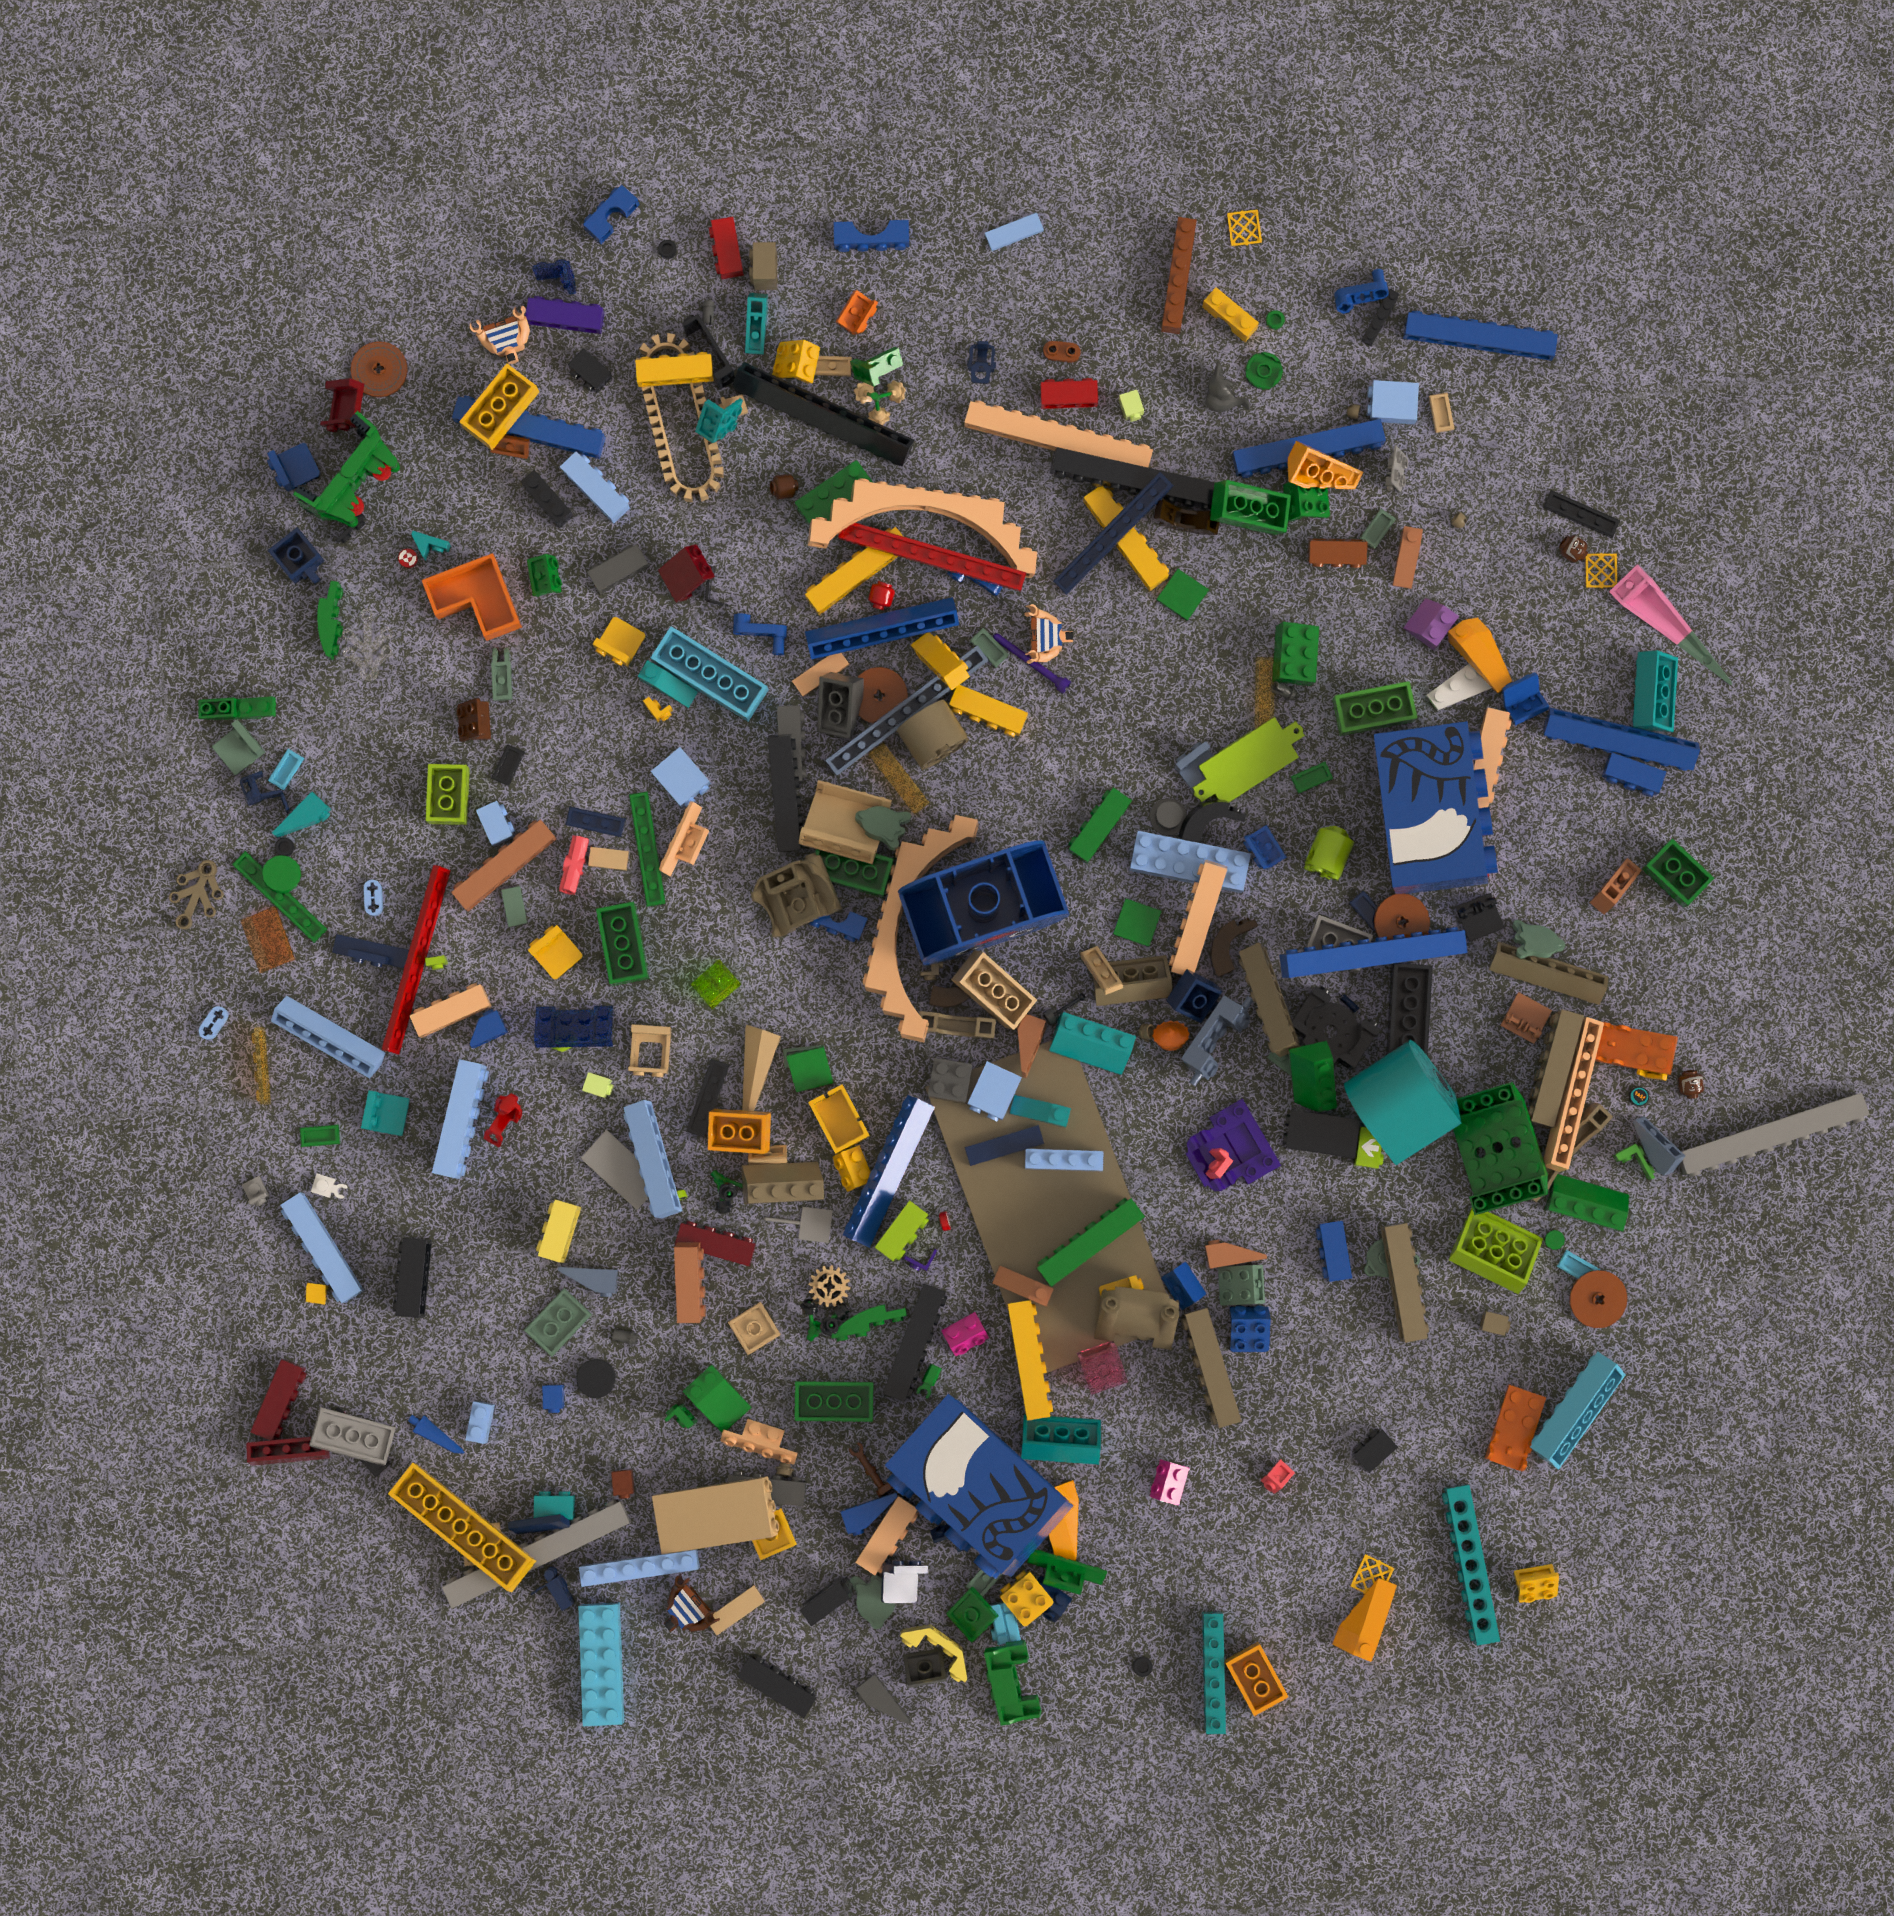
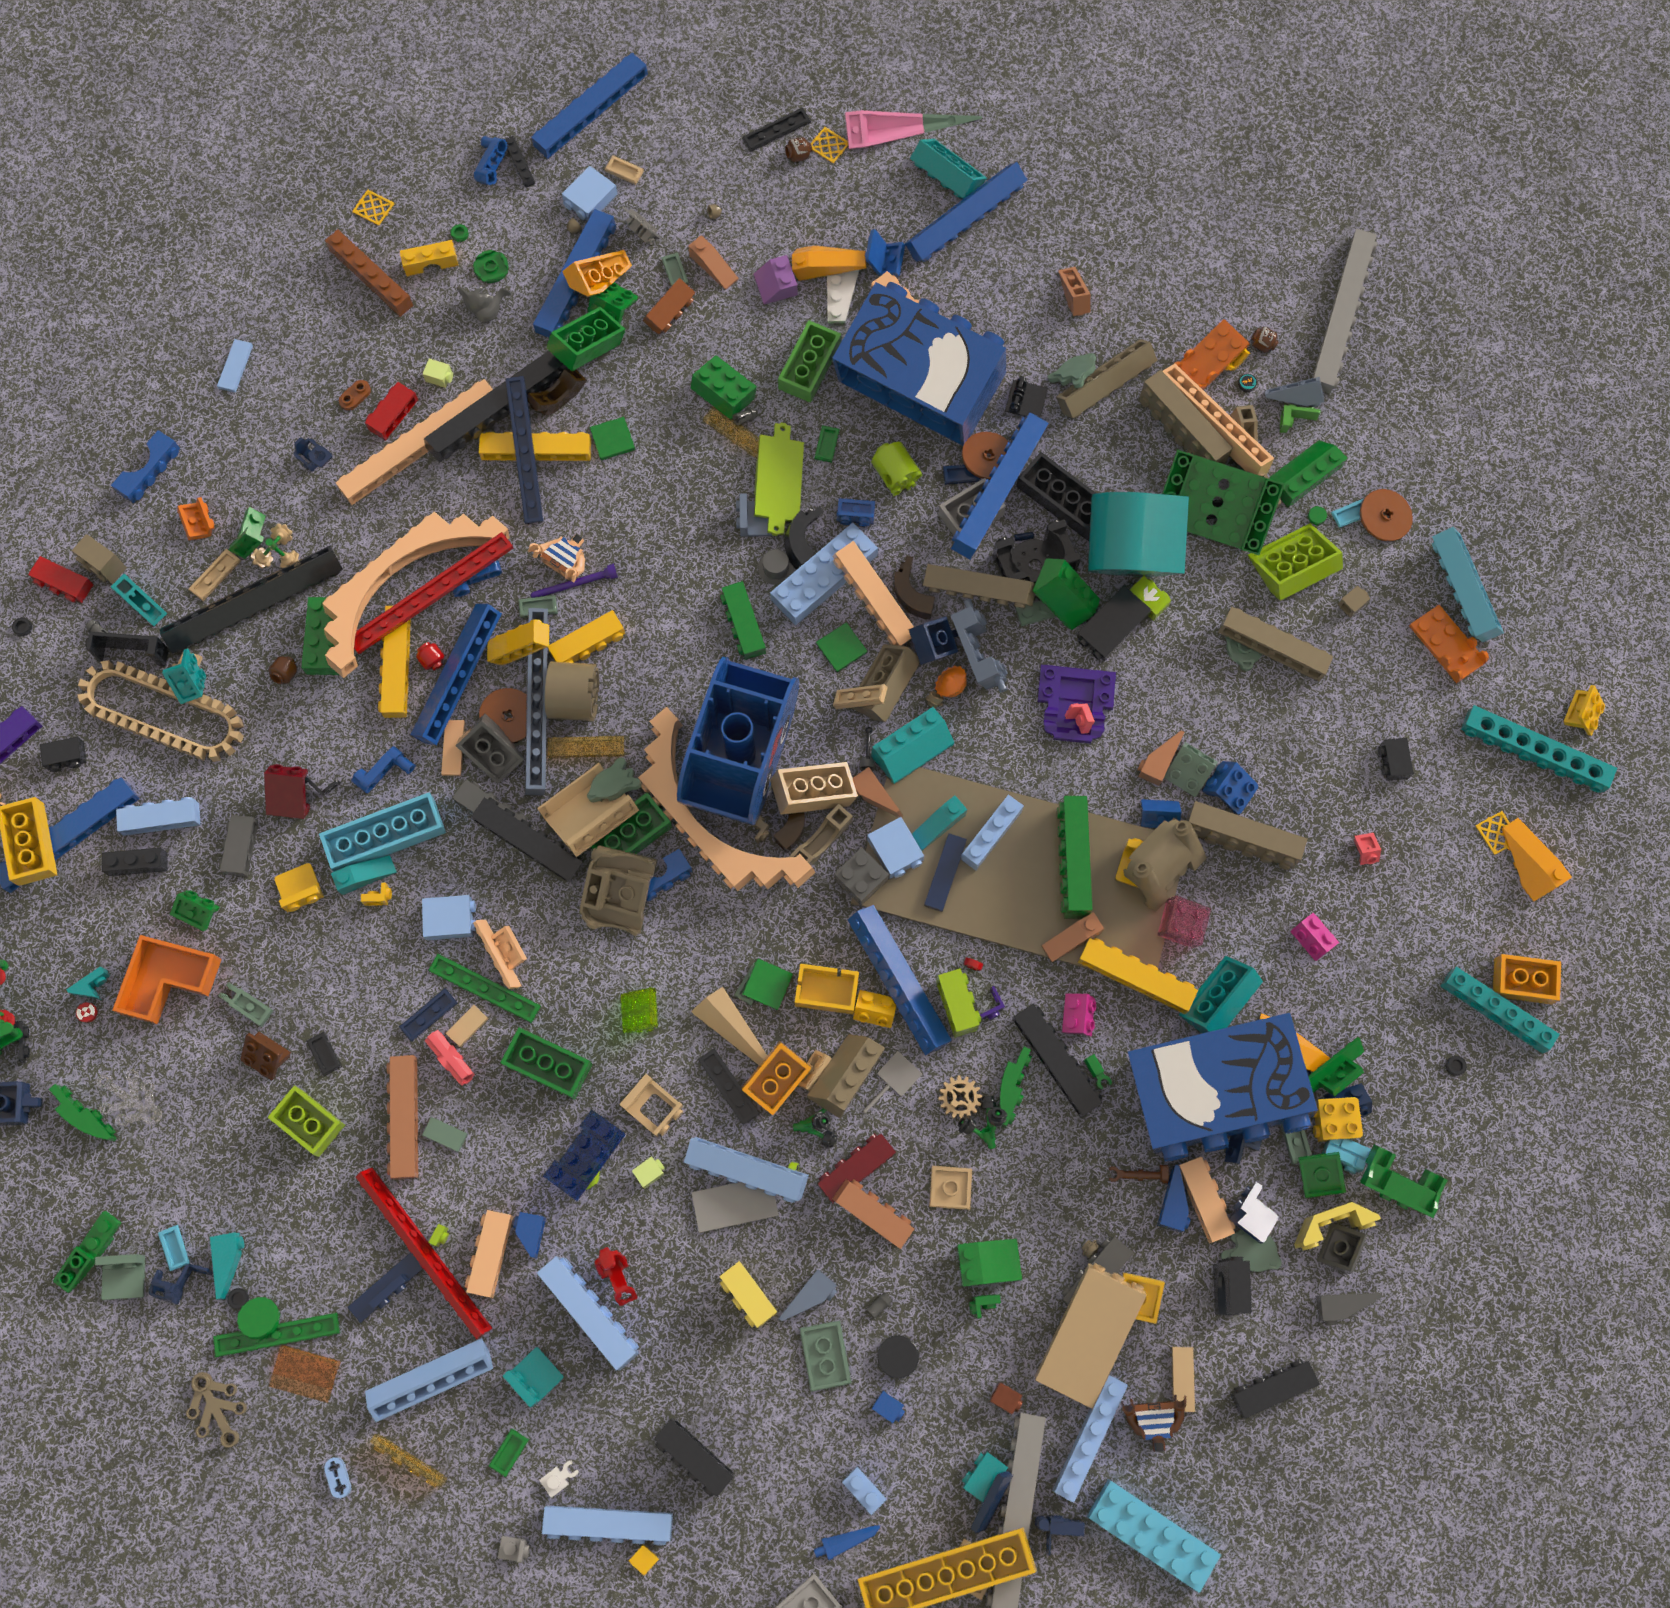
camera: 55 degrees left, 10 degrees down
(377, 896) = (345, 1248): light blue beam -> none
(495, 823) = (362, 1098): light blue brick -> none
(513, 447) = (69, 859): dark orange plate -> none
(555, 952) = (509, 1126): yellow bracket -> none
(674, 370) = (118, 684): yellow brick -> none
(761, 1440) = (1050, 1250): light nougat bracket -> none
(796, 360) = (191, 588): yellow bracket -> none
(834, 1401) = (1061, 1162): green brick -> none
(1334, 1251) = (1213, 679): blue brick -> none
(1526, 1018) = (1129, 419): nougat hinge -> none
(1633, 775) = (999, 222): blue brick -> none
(1677, 873) = (1097, 241): green brick -> none

